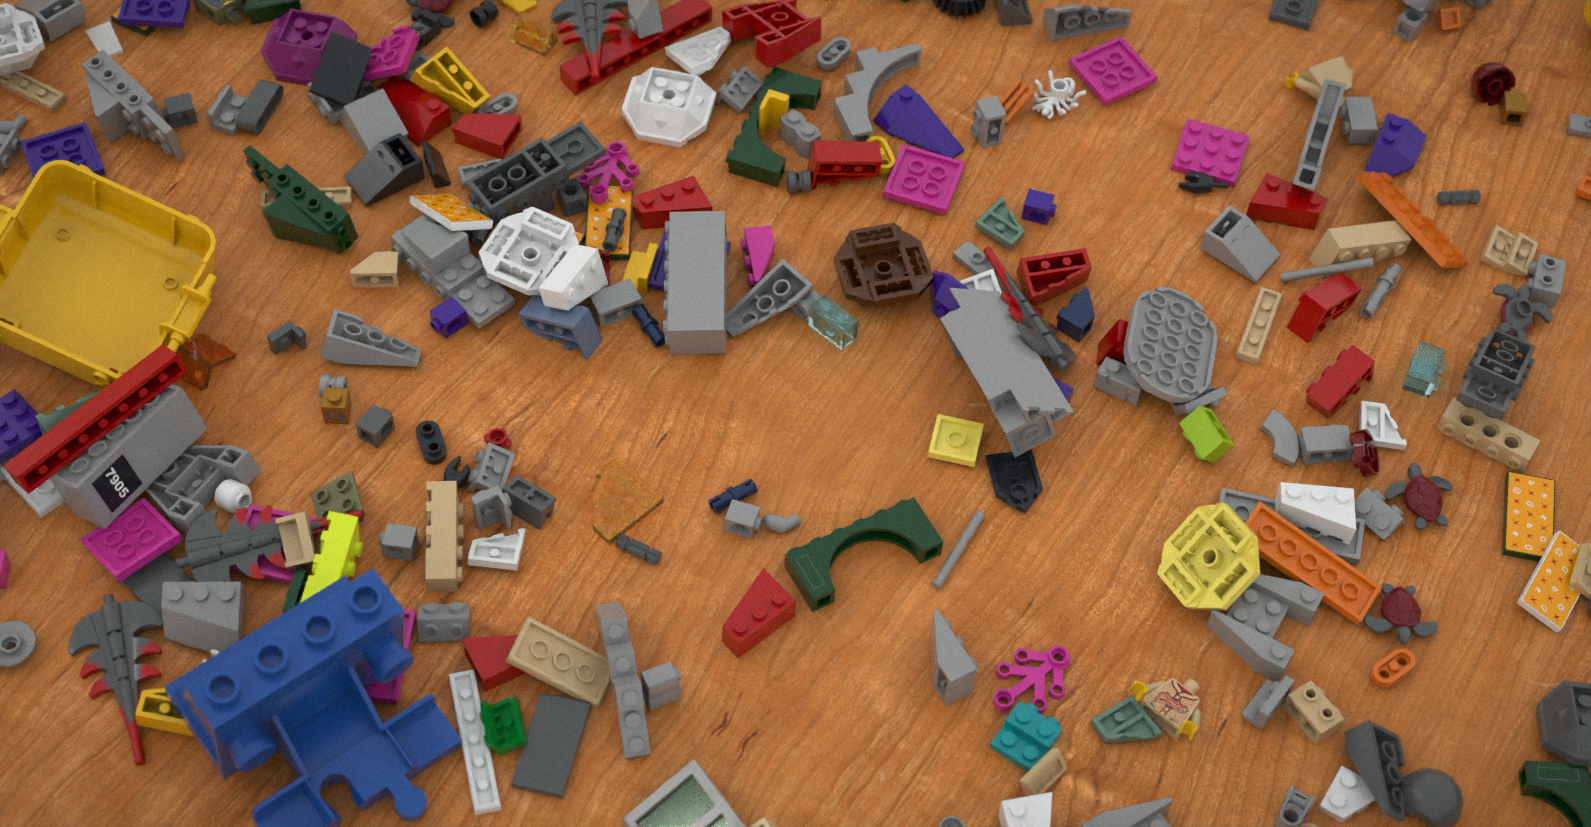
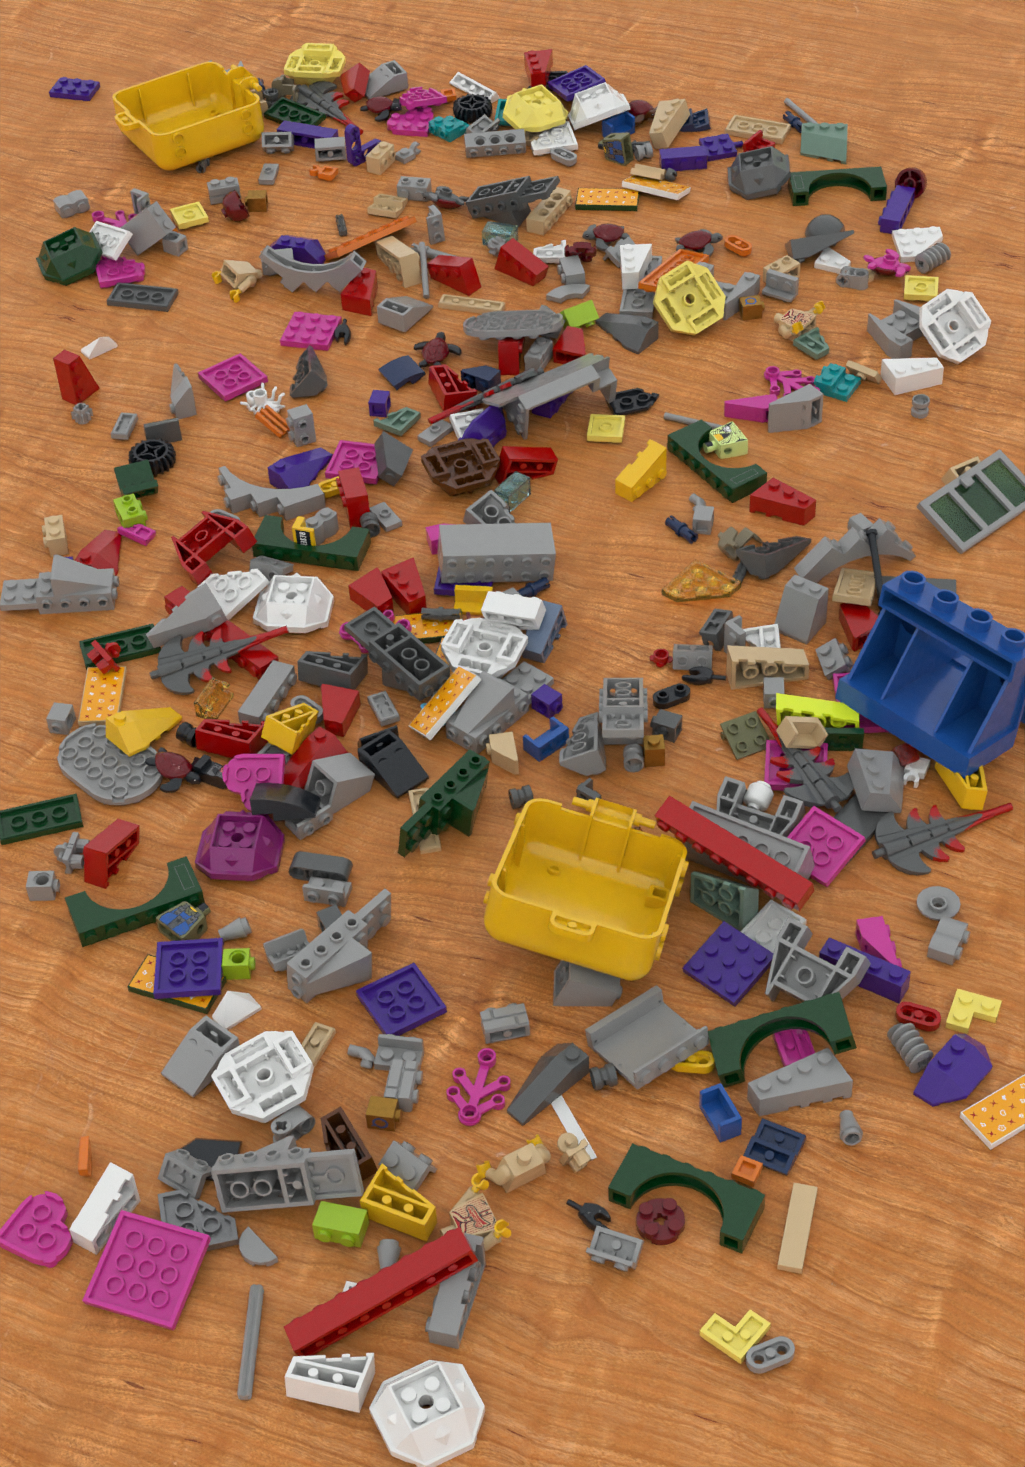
camera: 90 degrees left, 10 degrees down
(155, 38) = (237, 963): none -> lime brick
(156, 76) = (284, 948): none -> light grey bracket
(201, 41) = (237, 929): none -> light grey cone
(305, 278) = (520, 797): none -> dark grey wheel
(386, 370) = (623, 711): none -> light grey wedge
(387, 311) = (548, 741): none -> blue panel
(462, 36) = (229, 738): none -> red wedge
(526, 76) = (268, 693): none -> light grey brick
(530, 591) = (802, 609): none -> light grey slope
(545, 121) = (338, 671): none -> dark grey wedge
(619, 673) = (871, 533): none -> black bar
(652, 580) = (771, 556): none -> dark grey wedge
(669, 169) = (371, 591): none -> red slope
(683, 544) = (730, 541): none -> dark tan piece
(817, 200) = (386, 517): none -> light grey plate
(843, 463) = (643, 473): none -> yellow wedge
(885, 339) = (530, 461): none -> red wedge
(904, 572) = (727, 441): none -> yellowish green torso
(911, 205) = (391, 458): none -> dark grey slope
(973, 618) = (749, 408): none -> dark pink slope
(1098, 142) = (310, 376): none -> dark grey wedge
(1107, 236) = (401, 371): none -> dark blue slope
(1141, 422) = (569, 346): none -> red slope
(1145, 270) = (436, 350): none -> dark red animal
(1176, 499) = (632, 331): none -> dark grey wedge
(1221, 655) = (751, 307): none -> pearl gold brick
(1392, 361) = (494, 245): none -> light grey gear
(1436, 290) = (435, 225): none -> light grey bracket
(1480, 40) = (189, 215): none -> light yellow plate
(1535, 74) = (219, 188): none -> light grey brick

